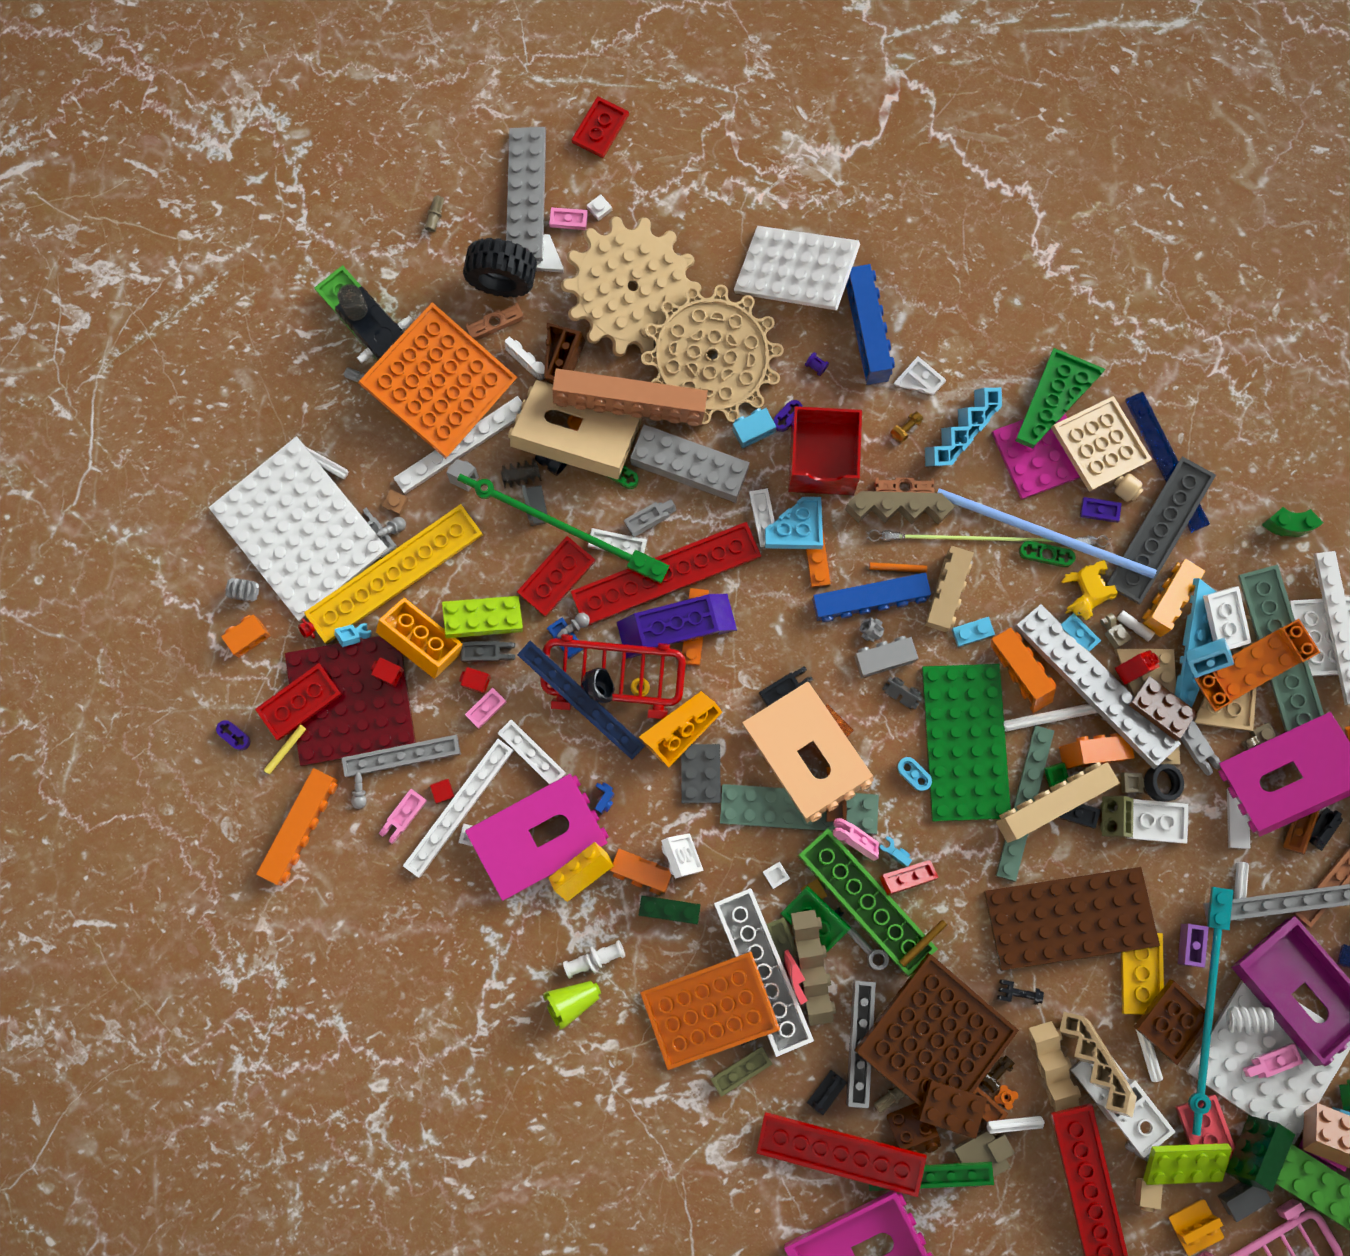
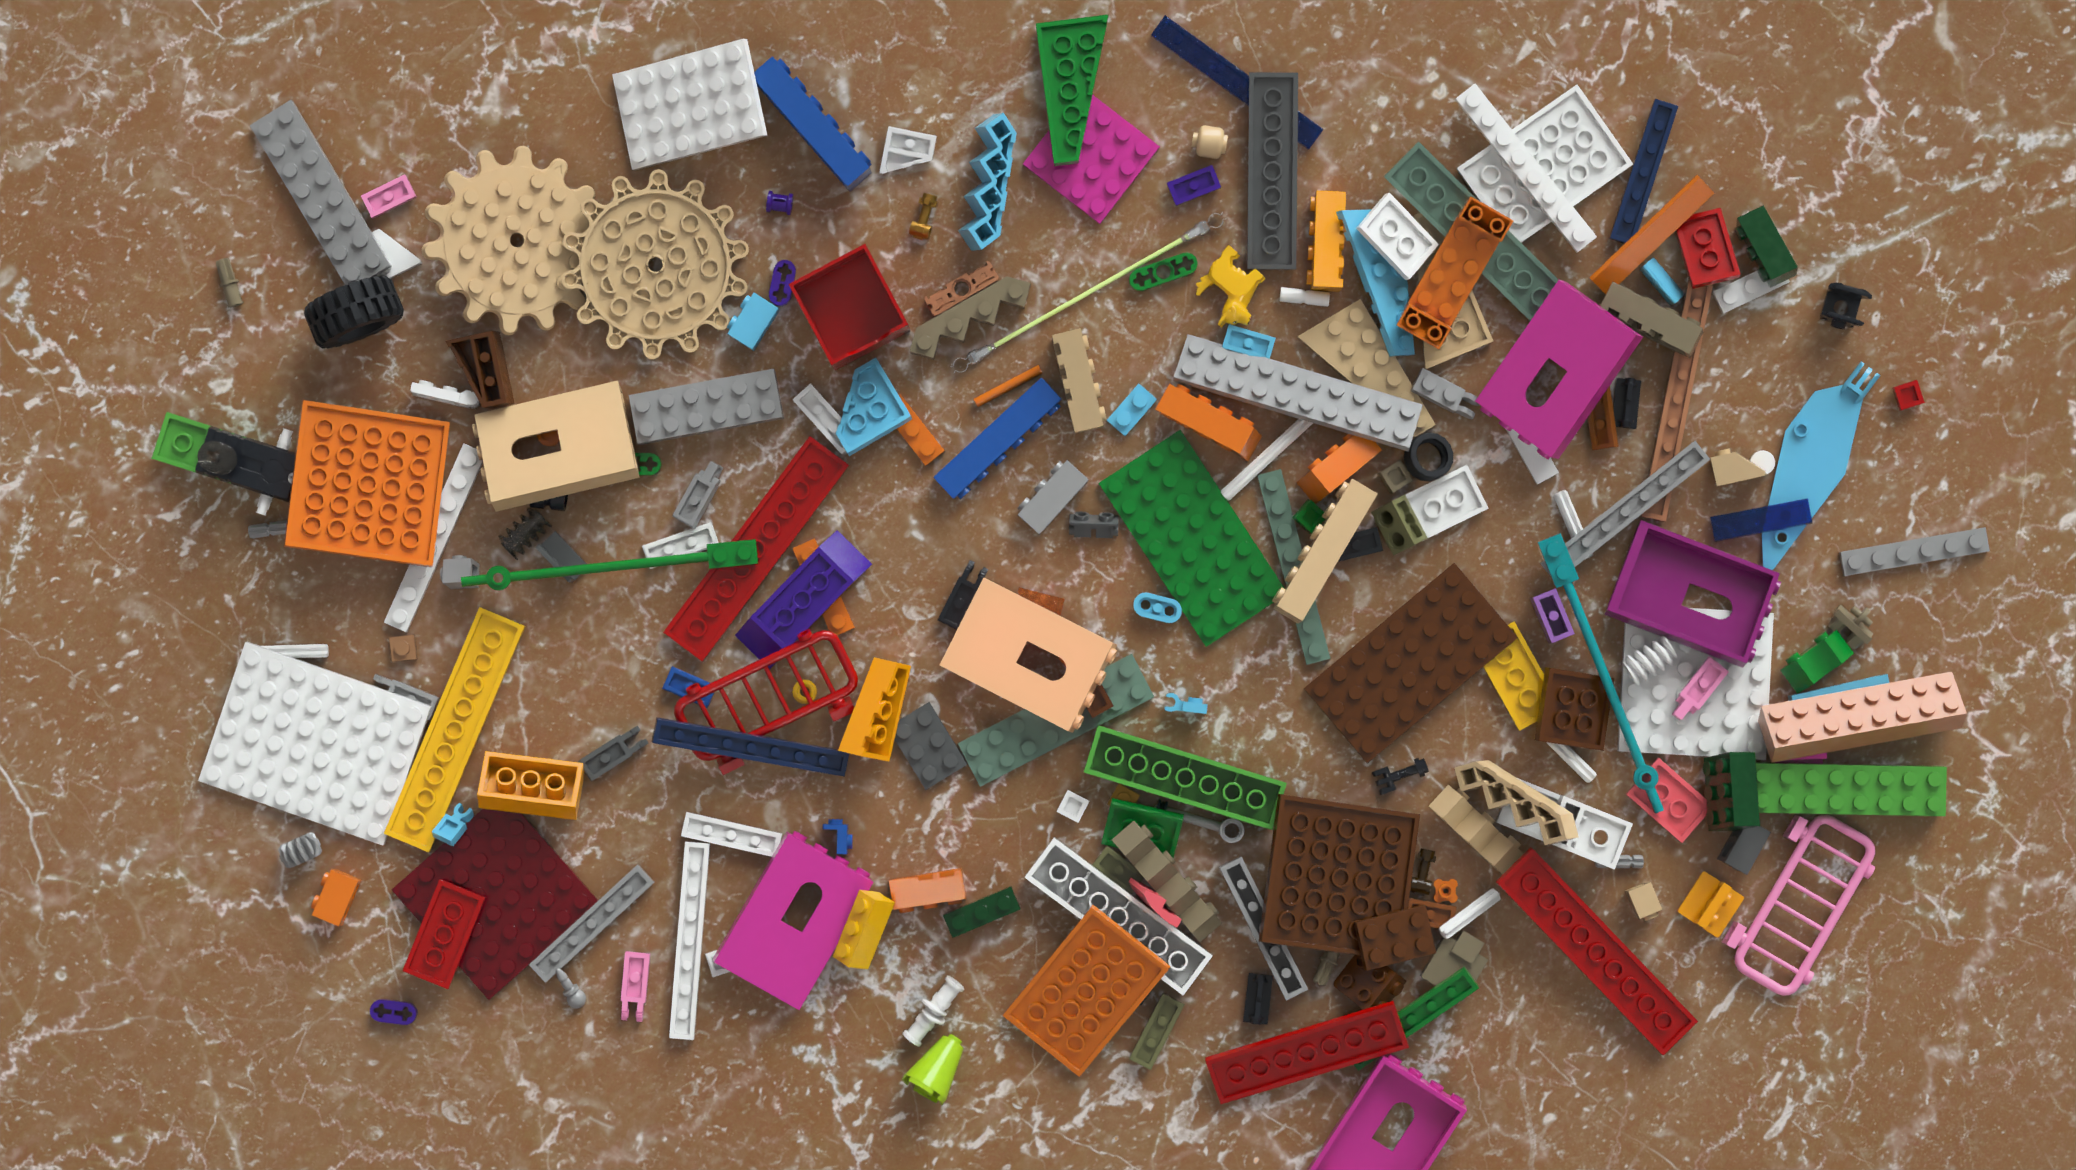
camera: 30 degrees left, 10 degrees up
(284, 750) = (461, 993): light yellow piece -> none
(297, 827) = (529, 1065): orange brick -> none
(306, 629) = (399, 849): red plate -> none
(386, 671) = (519, 843): red brick -> none
(396, 525) = (421, 673): light grey bar -> none
(442, 791) = (660, 933): red tile -> none
(475, 680) = (620, 793): red brick -> none
(482, 617) = (584, 720): lime plate -> none
(485, 708) = (650, 816): bright pink plate -> none
(507, 318) = (372, 385): nougat piece -> none
(556, 576) = (636, 624): red plate -> none
(581, 621) = (695, 658): light grey bar -> none
(598, 685) = (760, 721): black hair -> none
(599, 207) = (415, 160): white plate -> none
(600, 127) = (355, 60): red plate -> none
(629, 397) = (596, 378): nougat brick -> none
(681, 855) = (960, 848): white plate -> none
(856, 838) = (1135, 717): bright pink hinge -> none
(871, 629) = (1019, 475): light grey gear -> none
(908, 877) = (1214, 724): plate -> none
(923, 943) = (1267, 786): pearl gold bar -> none
(1049, 534) = (1147, 251): light blue piece -> none
(1101, 443) = (1151, 109): tan plate -> none
(1115, 633) = (1288, 319): dark tan plate -> none
(1137, 666) = (1331, 345): red pin -> none
(1163, 708) = (1382, 377): plate -> none
(1187, 1164) = (1664, 847): lime plate -> none
(1209, 657) = (1400, 294): medium azure brick -> none
(1260, 736) = (1505, 340): dark tan plate -> none
(1292, 524) = (1413, 77): green brick -> none

